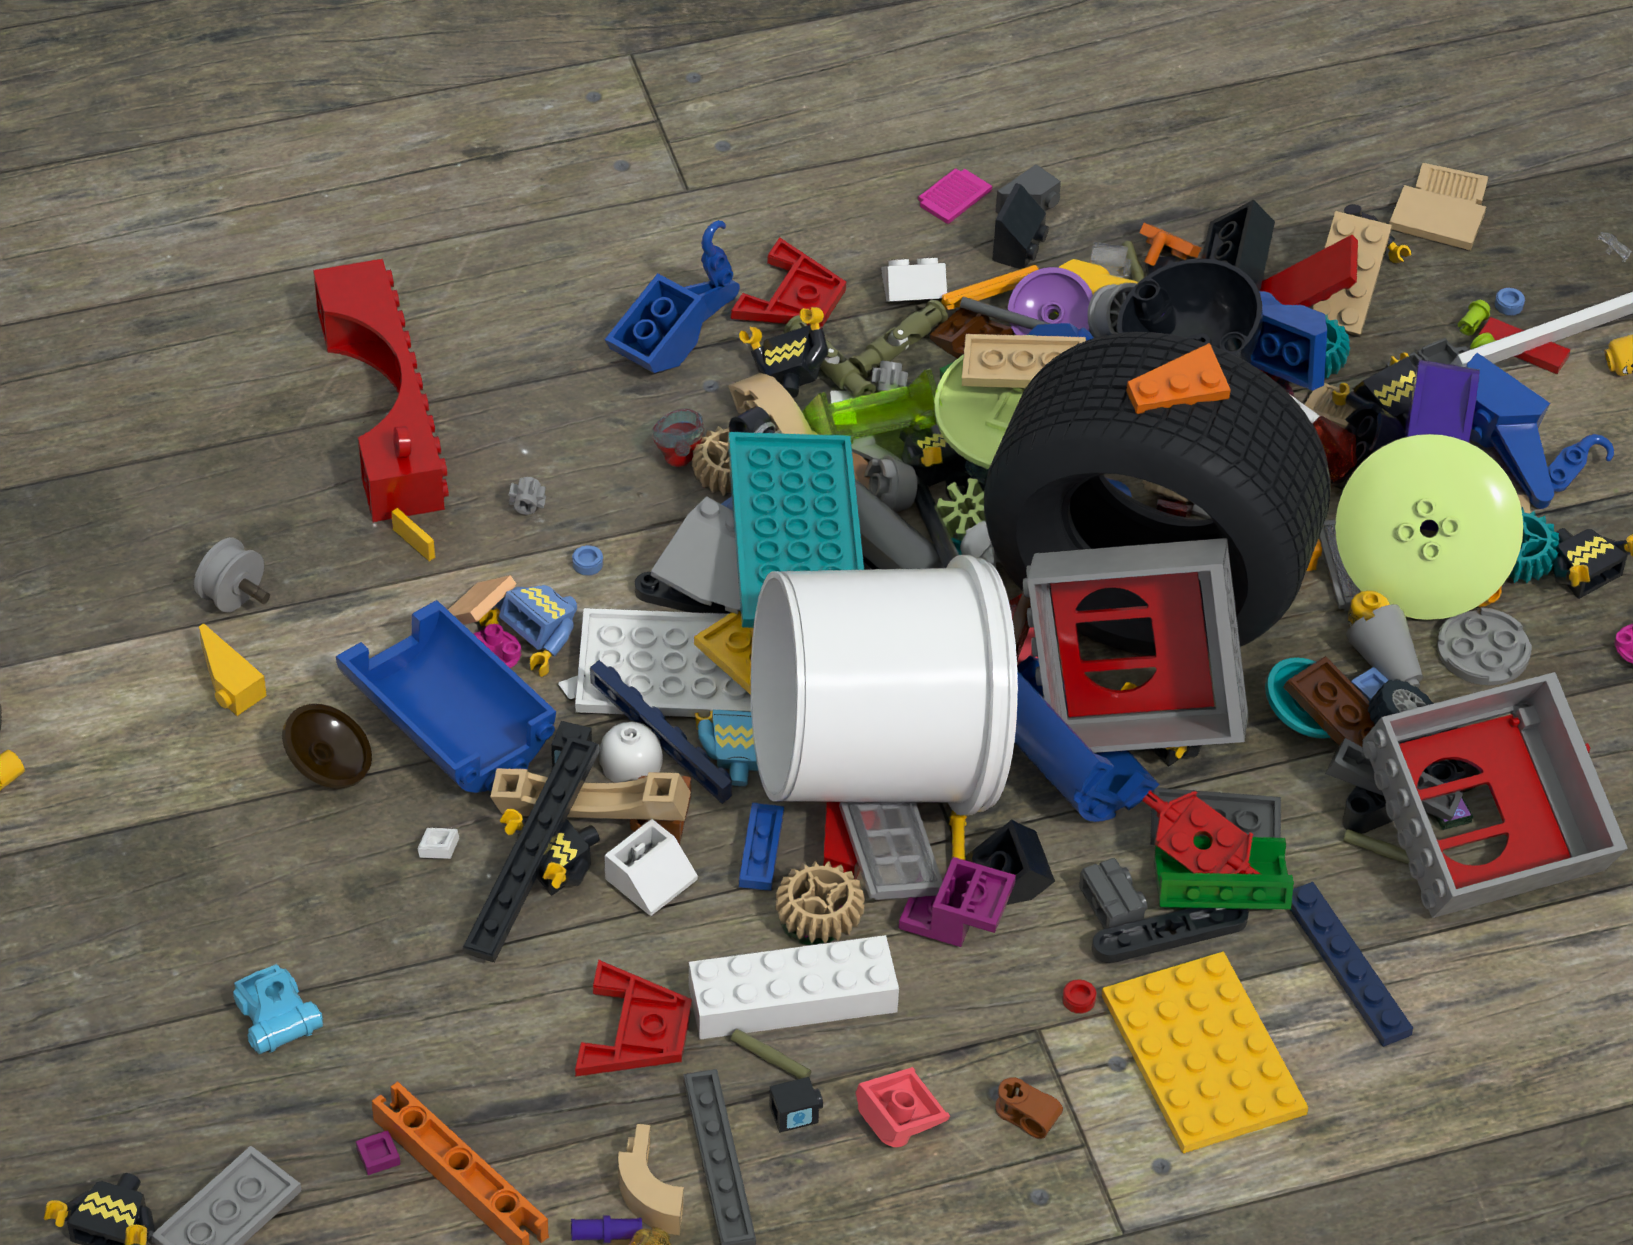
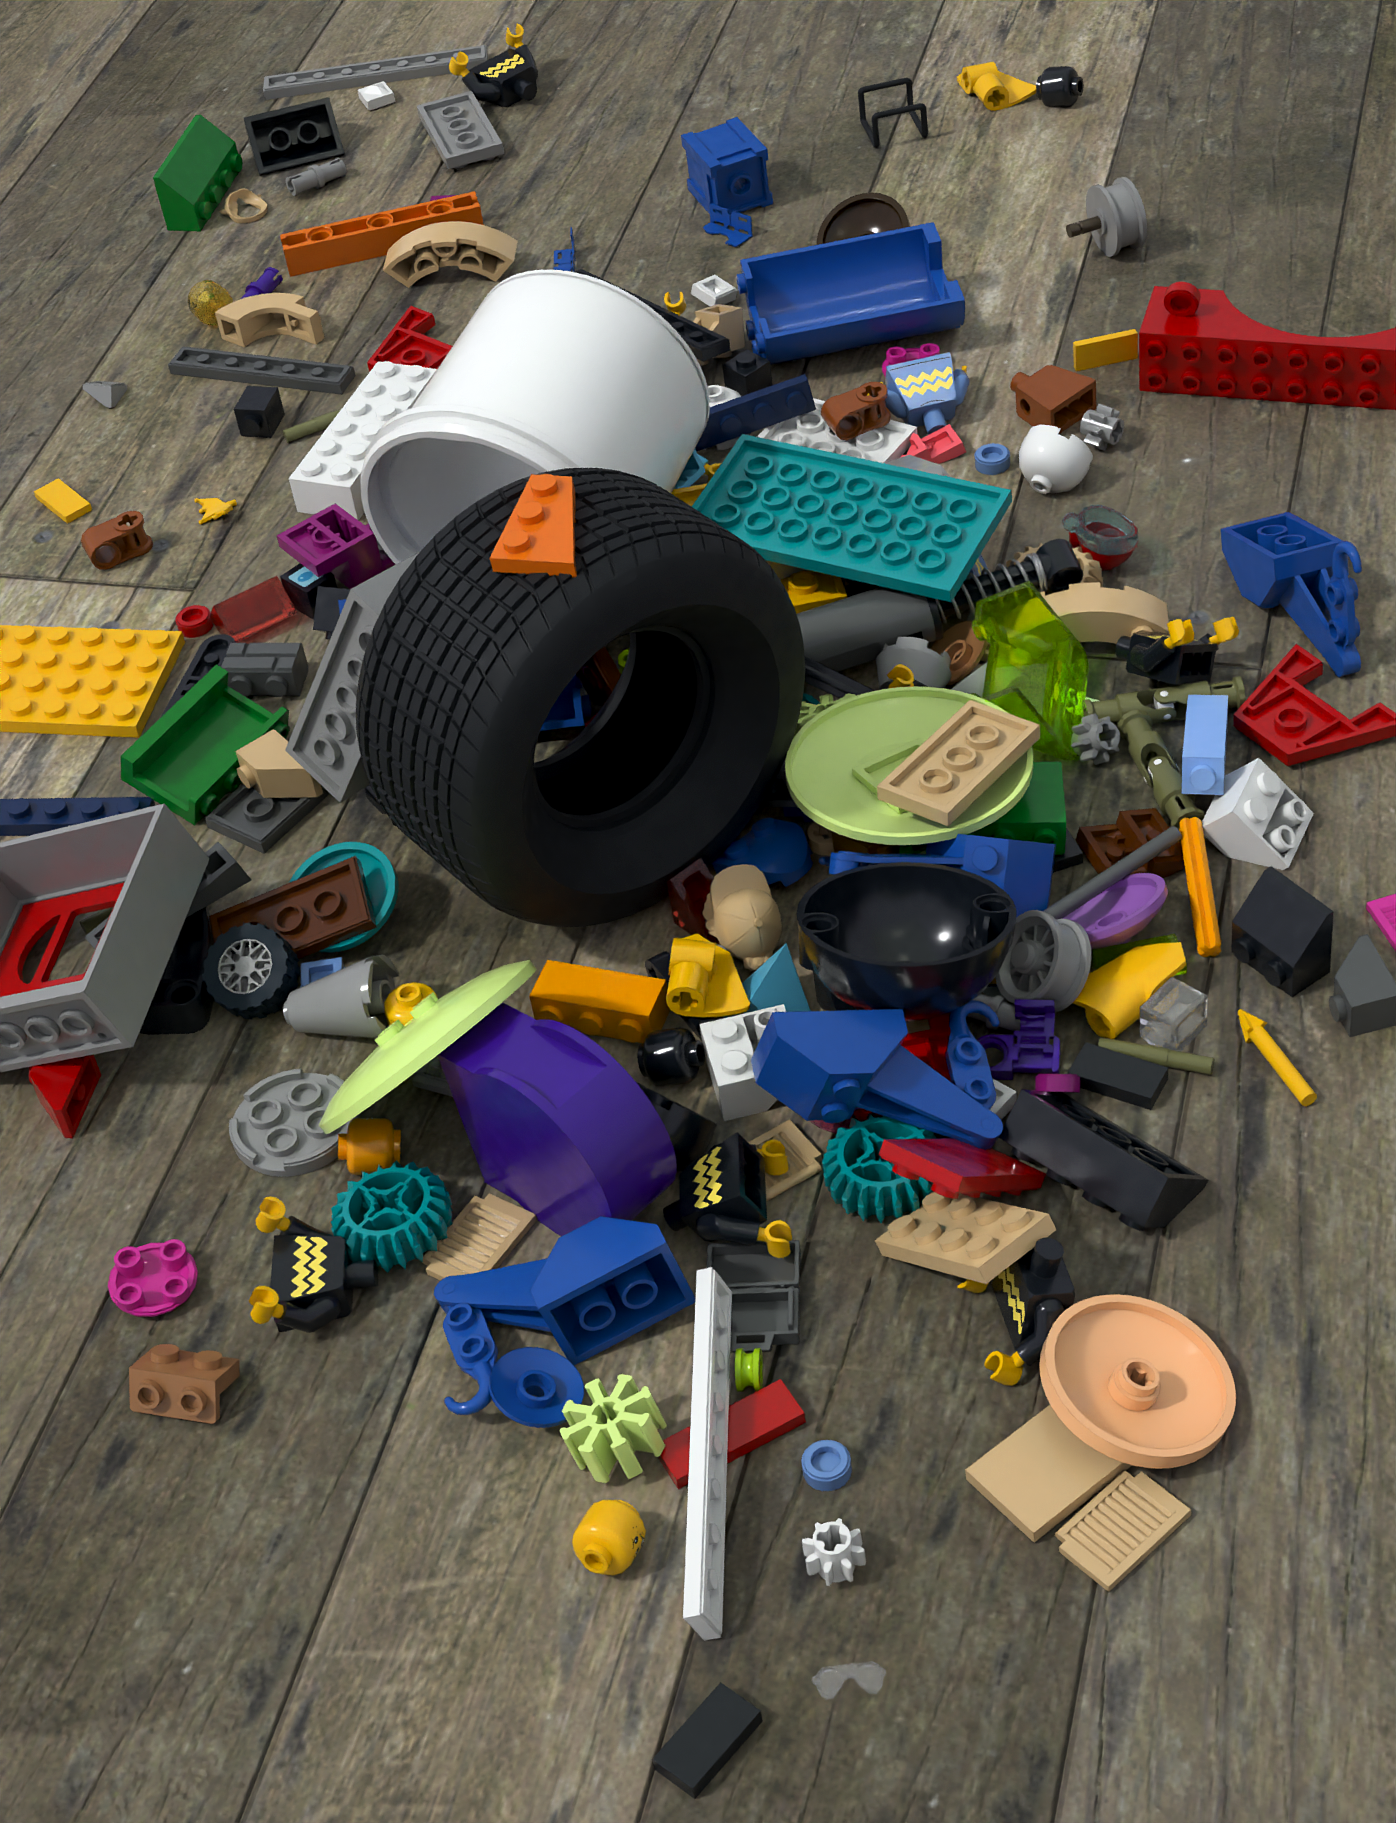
camera: 130 degrees right, 5 degrees down
(54, 828) = (911, 108): none -> black piece
(233, 678) = (1012, 213): yellow slope -> none
(250, 900) = (727, 167): none -> blue container
(275, 1009) = (617, 170): medium azure piece -> none
(324, 881) = (735, 237): none -> blue piece
(406, 993) = (565, 263): none -> blue piece
(479, 1067) = (450, 244): none -> tan brick
(481, 599) = (972, 357): light nougat tile -> none
(501, 541) = (1053, 396): none -> dark orange torso
(590, 596) = (937, 446): none -> coral slope
(594, 503) = (1052, 460): none -> white cylinder
(603, 637) = (855, 412): none -> dark orange piece
(874, 310) = (1205, 745): none -> light blue brick
(898, 1106) = (191, 465): coral slope -> none
(933, 1067) = (214, 508): none -> yellow piece
(988, 1208) = (63, 500): none -> yellow piece
(1009, 925) = (302, 587): none -> black brick
(1051, 950) = (253, 610): none -> clear red brick
(1088, 233) = (1254, 1031): none -> yellow piece
(1159, 238) = (1181, 1098): orange plate -> none
(1190, 816) = (239, 727): red plate -> none
(1223, 797) = (273, 771): none -> tan slope
(1338, 447) = (669, 1066): clear red slope -> none
(1378, 184) = (1137, 1381): none -> light nougat dish
(1478, 312) = (822, 1400): lime pin -> none
(1560, 270) = (833, 1552): none -> white gear
(1569, 377) = (613, 1428): none -> yellowish green gear
(1570, 423) = (535, 1373): none -> blue dish

